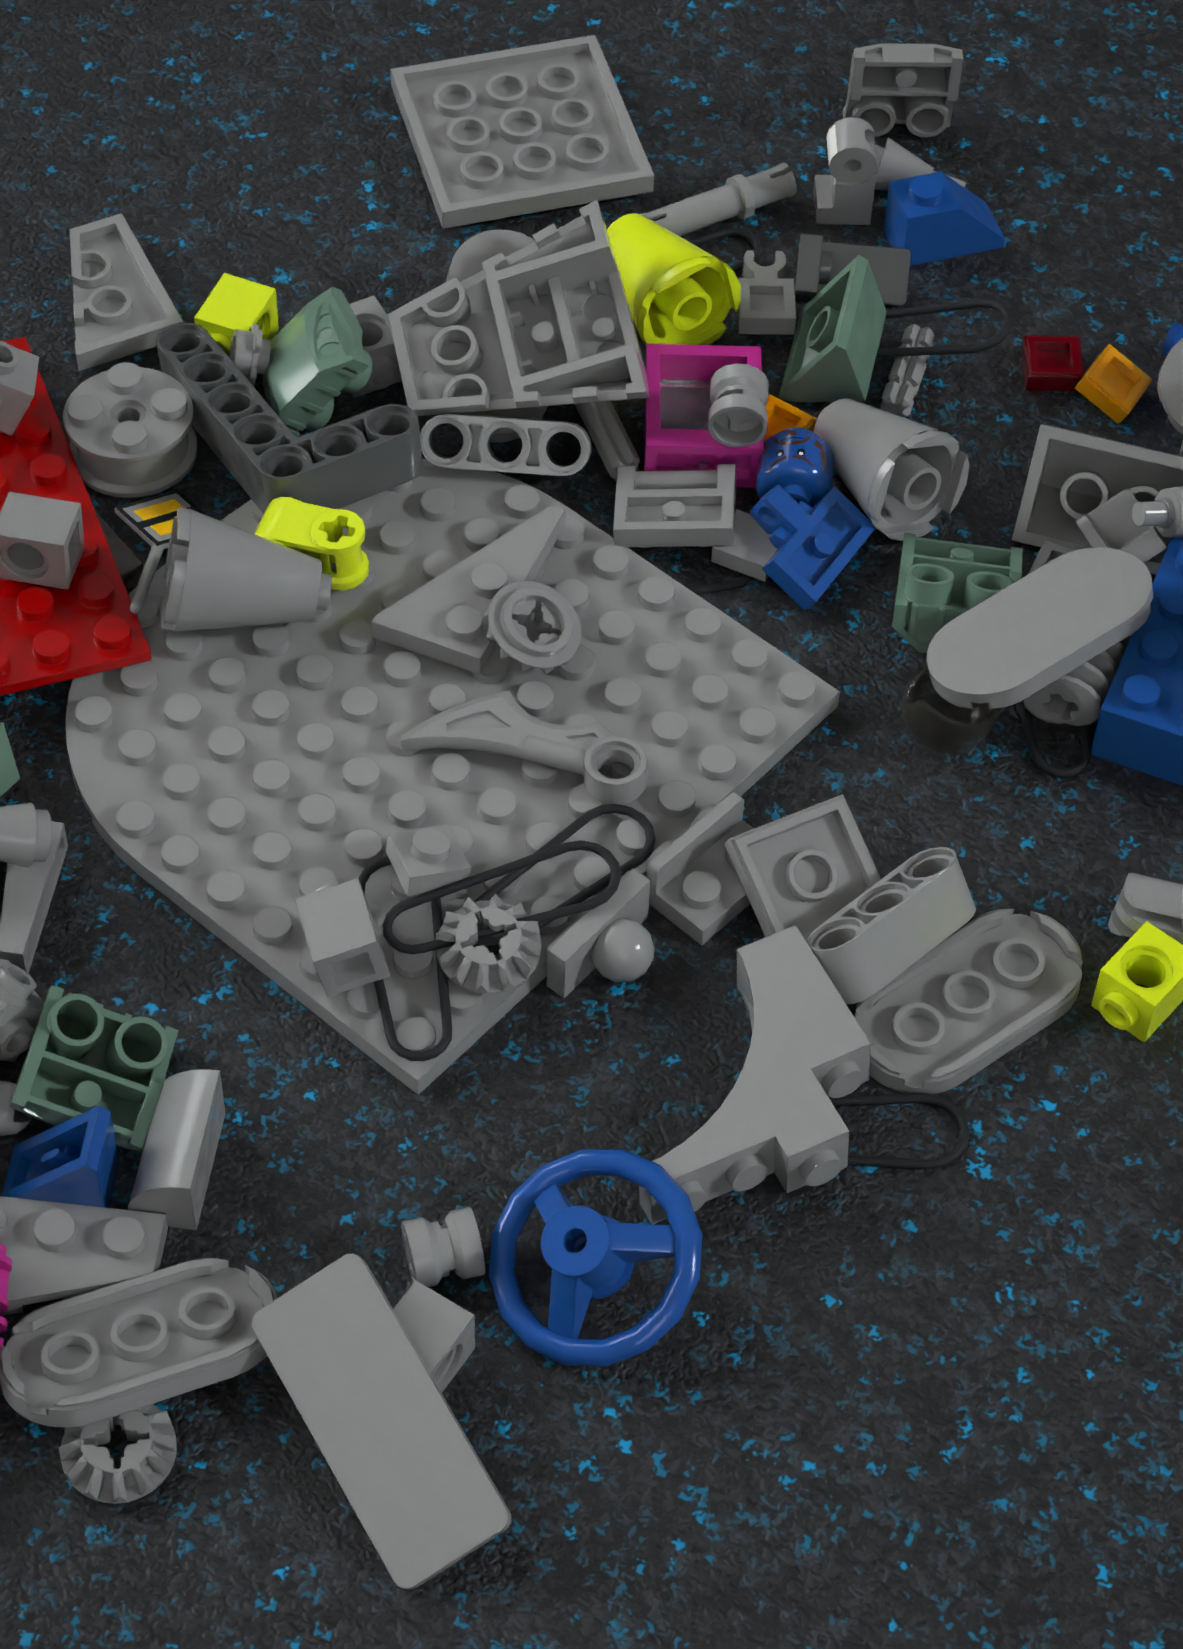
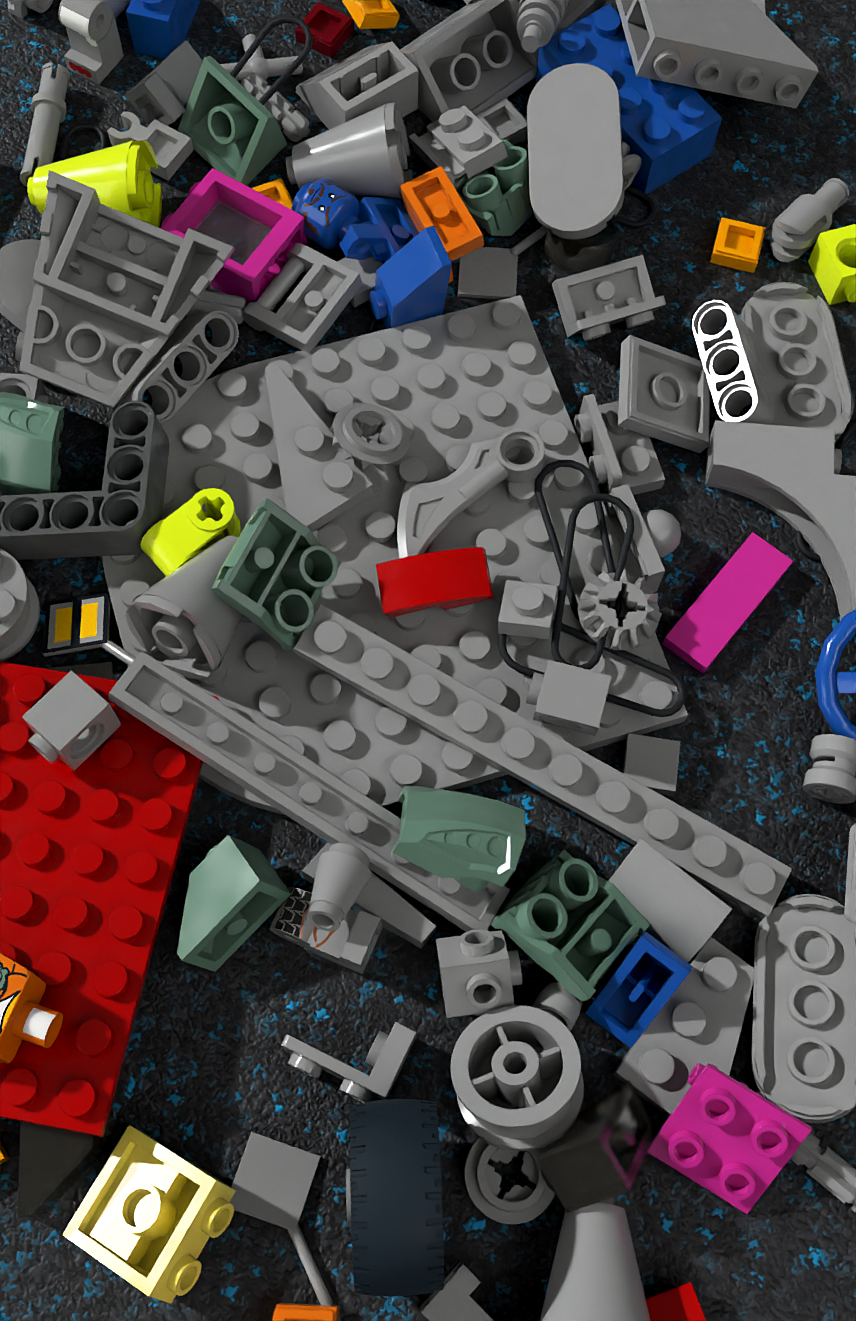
camera: 60 degrees left, 15 degrees up
(89, 771) = (291, 785): none -> light grey plate
(121, 909) = (460, 835): none -> sand green slope
(263, 974) = (542, 760): none -> light grey plate
(293, 611) = (276, 573): none -> sand green slope
(337, 1077) = (652, 762): none -> light grey tile
(402, 760) = (433, 580): none -> red slope
(592, 1065) = (727, 603): none -> dark pink tile
(738, 405) = (271, 204): light grey wheel -> none
(757, 579) = (412, 281): none -> blue slope
(858, 658) = (493, 271): none -> light grey piece
(860, 566) = (435, 202): none -> orange panel
(900, 768) = (606, 297): none -> light grey bracket
(951, 331) = (257, 63): none -> light grey piece
(979, 539) = (459, 144): none -> light grey plate
(990, 424) = (361, 84): none -> light grey slope
(1090, 870) = (737, 245): none -> light orange tile
(1113, 527) = (509, 72): light grey panel -> none

